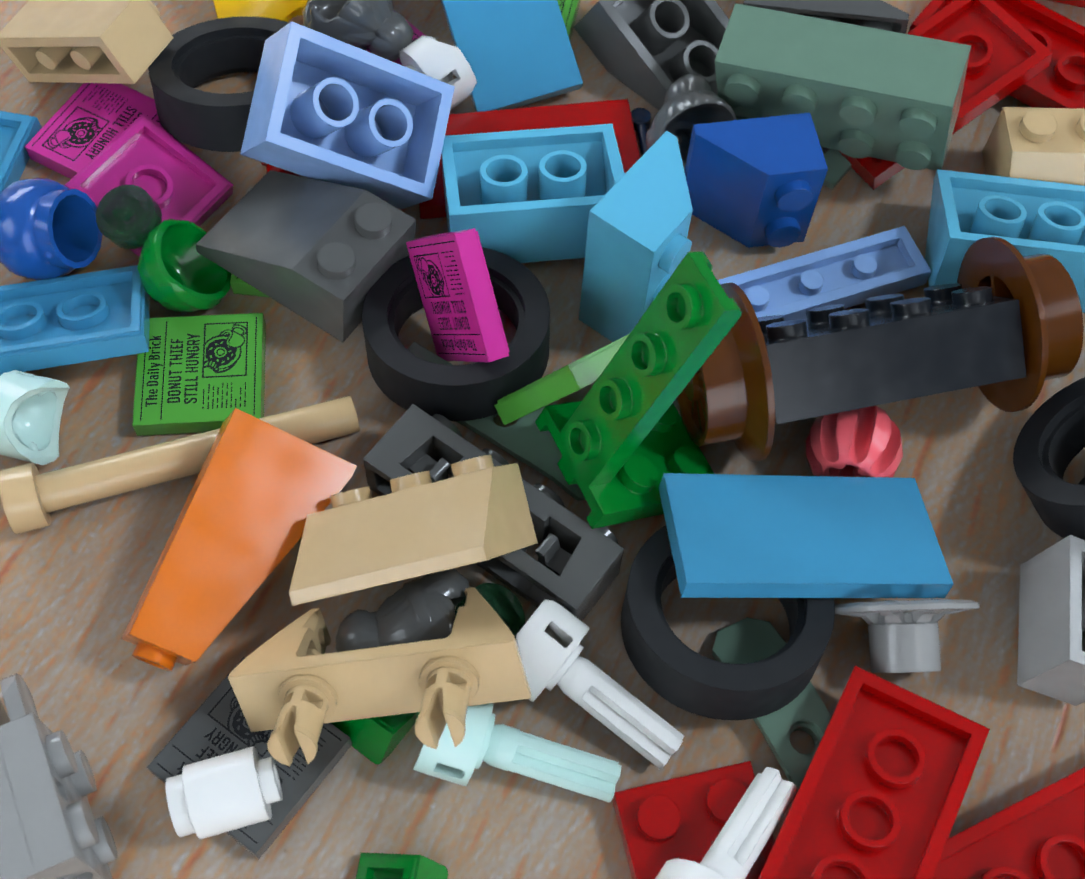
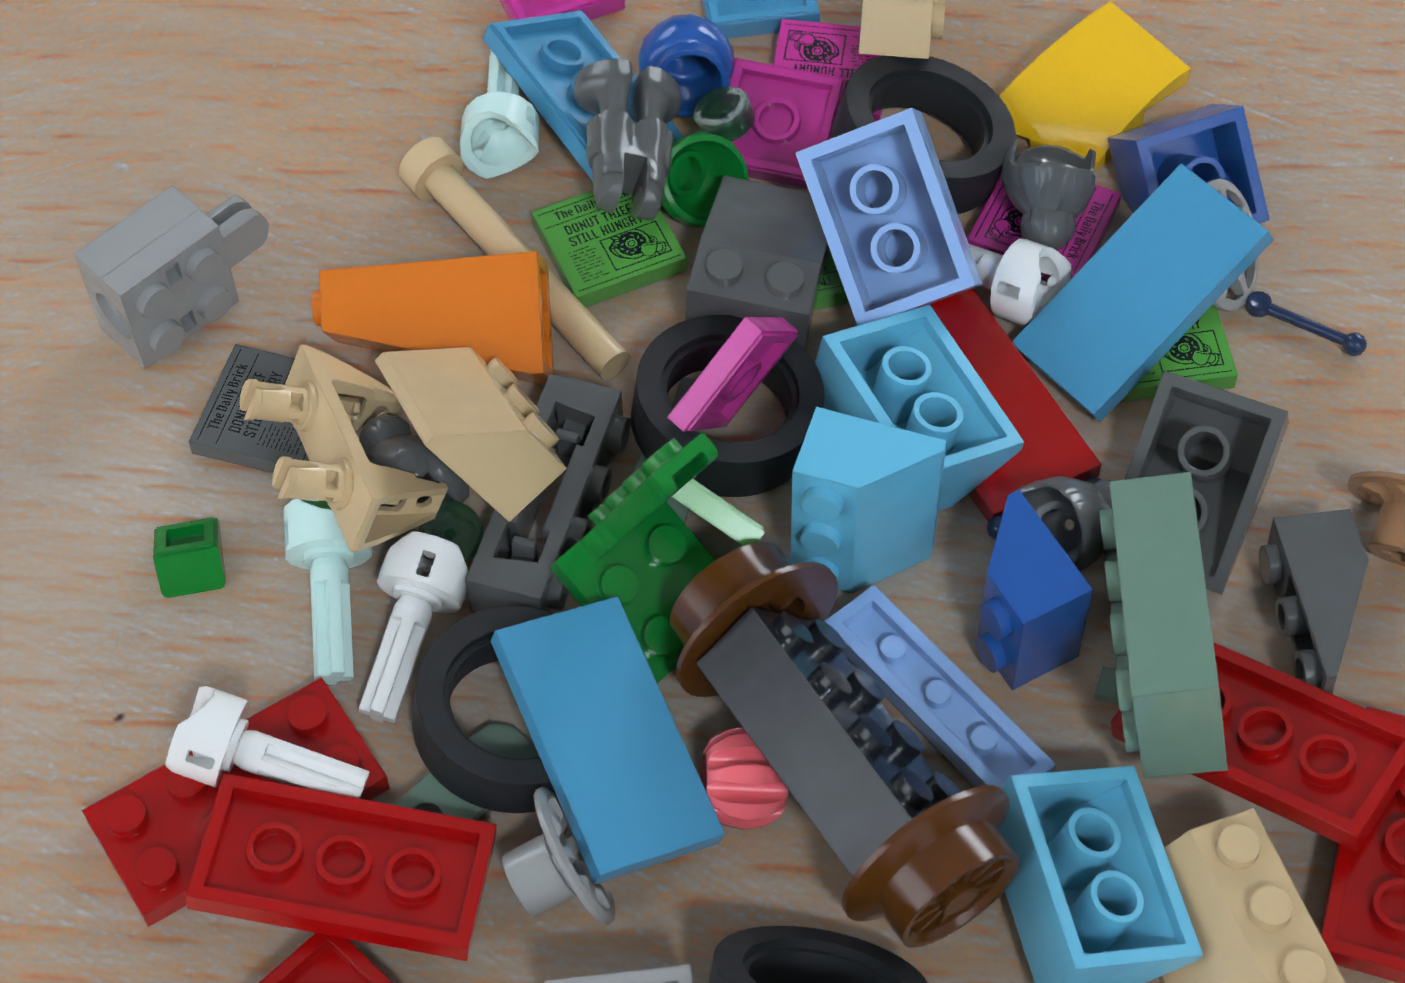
camera: 75 degrees right, 5 degrees down
(125, 292) = (619, 151): none -> dark grey piece
(223, 793) = (213, 387): white brick -> none

